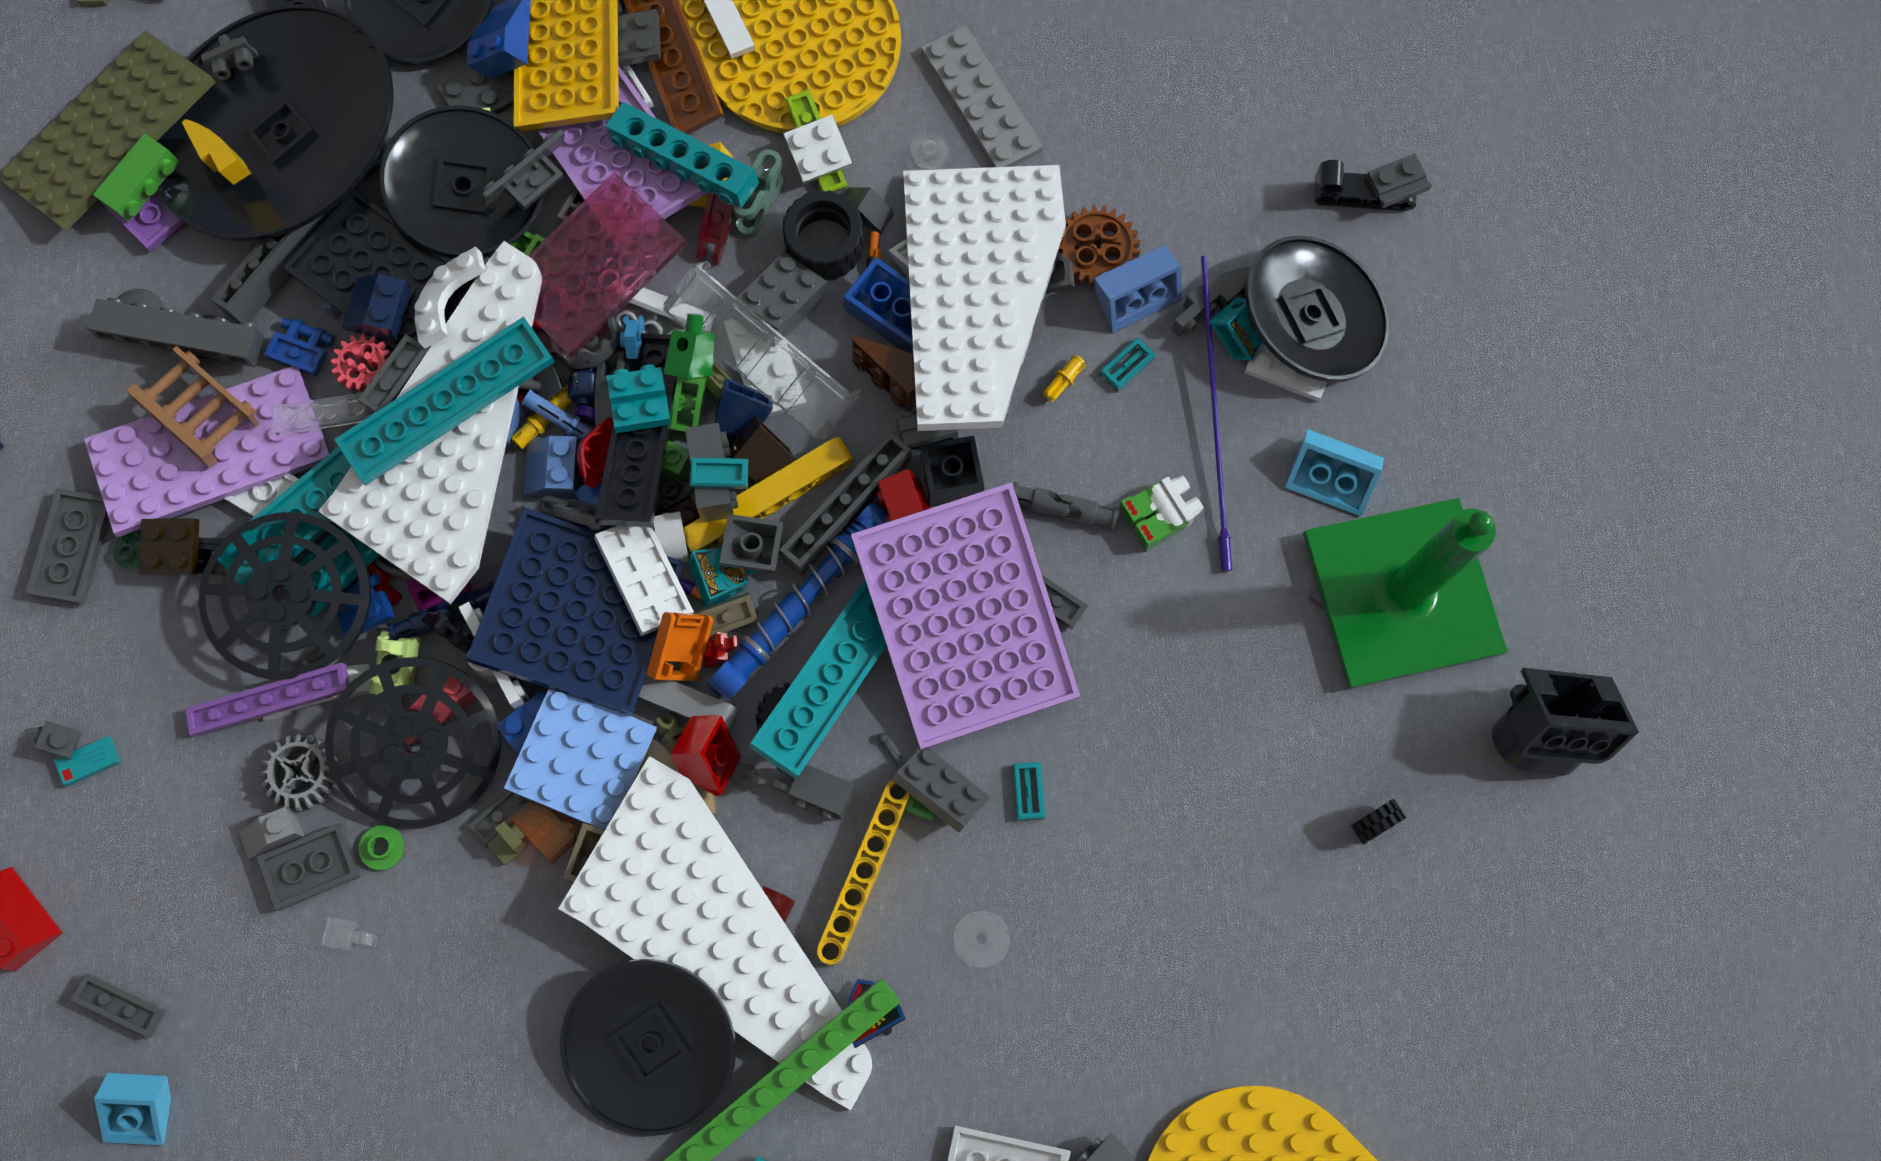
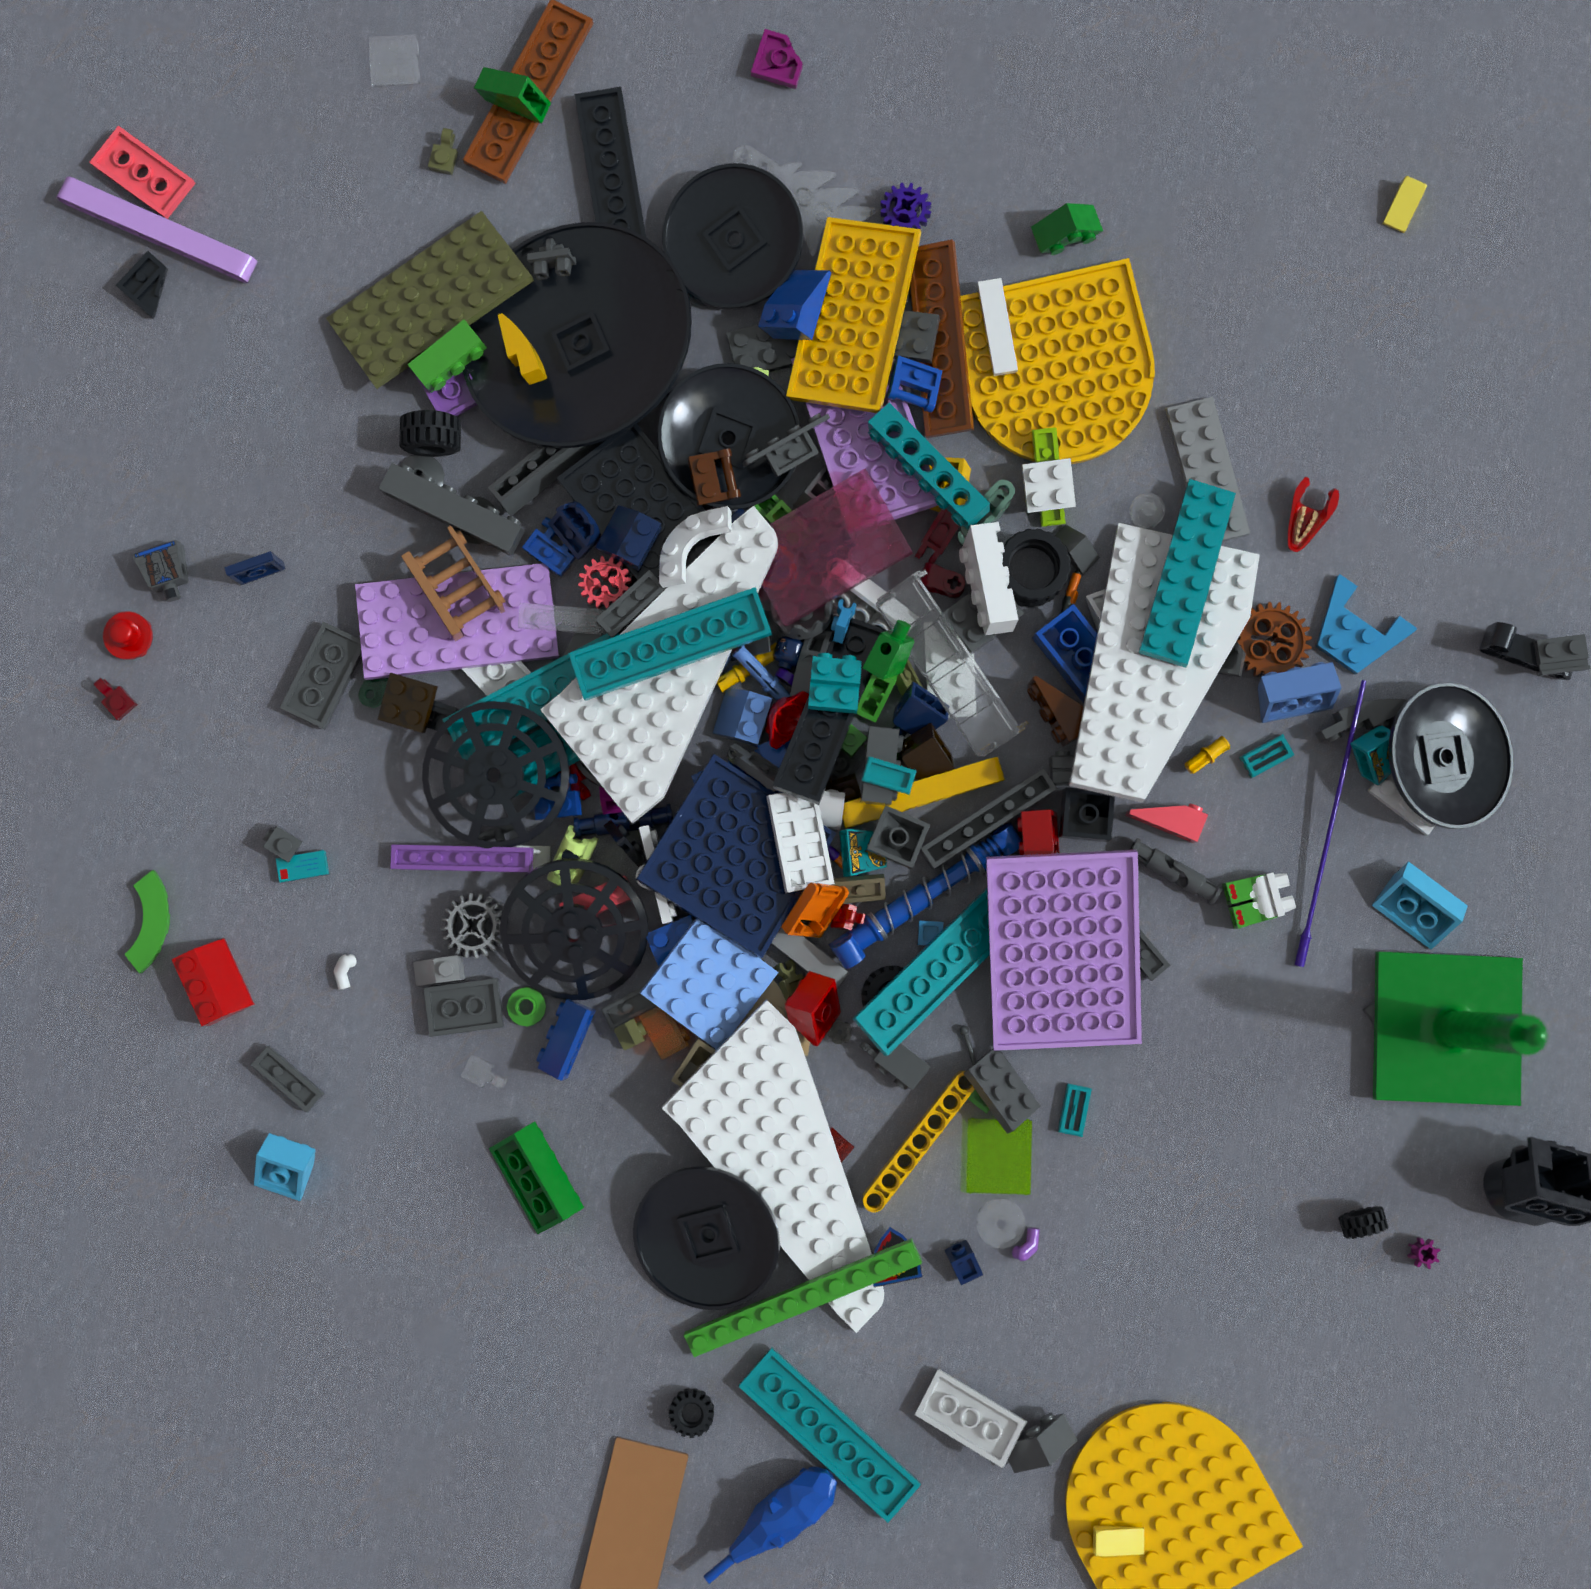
camera: 20 degrees right, 10 degrees up
(134, 260) = (430, 433): none -> black tyre
(156, 864) = (341, 969): none -> white arm
(316, 316) = (575, 528): none -> dark blue slope
(434, 868) = (565, 1039): none -> blue slope
(435, 1036) = (536, 1178): none -> green slope
(446, 227) = (706, 480): none -> reddish brown plate
(649, 75) = (917, 377): none -> blue plate
(732, 272) = (939, 580): none -> dark red piece
(776, 248) = (988, 579): none -> white wedge
(812, 638) = (928, 931): none -> dark azure plate
(951, 994) = (963, 1262): none -> dark blue bracket
(959, 867) = (997, 1159): none -> clear neon green piece
(986, 196) = (1187, 573): none -> teal plate
(1021, 956) = (1025, 1251): none -> medium lavender arm
(1048, 453) = (1180, 821): none -> coral slope
(1094, 121) = (1306, 521): none -> red animal
(1178, 224) = (1350, 638): none -> dark azure wing
(1460, 833) = (1416, 1252): none -> magenta gear

